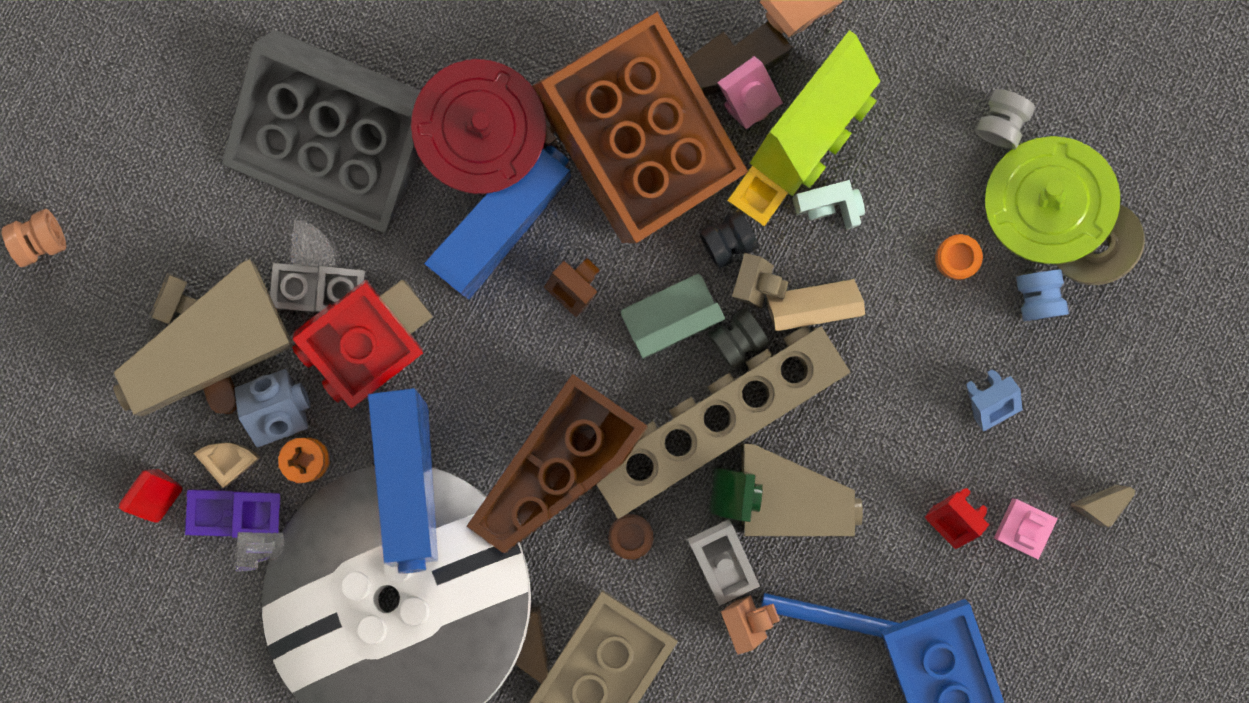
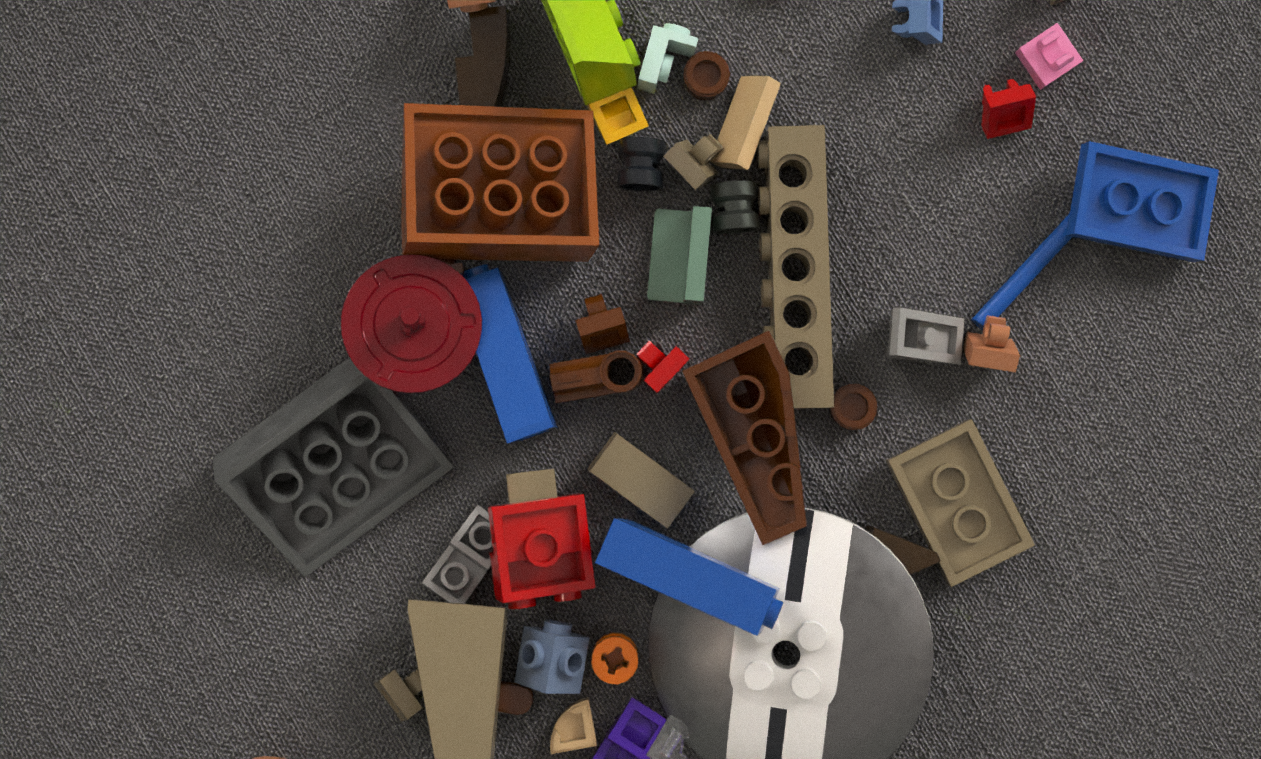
camera: 60 degrees left, 0 degrees up
(311, 247) = (427, 540): clear tile -> none
(464, 394) = (641, 480): none -> dark tan slope
(526, 303) = (591, 377): none -> reddish brown piece
(569, 356) = (662, 366): none -> red tile
(735, 494) = (873, 291): dark green slope -> none
(749, 93) = (523, 67): bright pink bracket -> none
(797, 499) = (905, 244): dark tan slope -> none
(836, 249) = (706, 75): none -> reddish brown tile

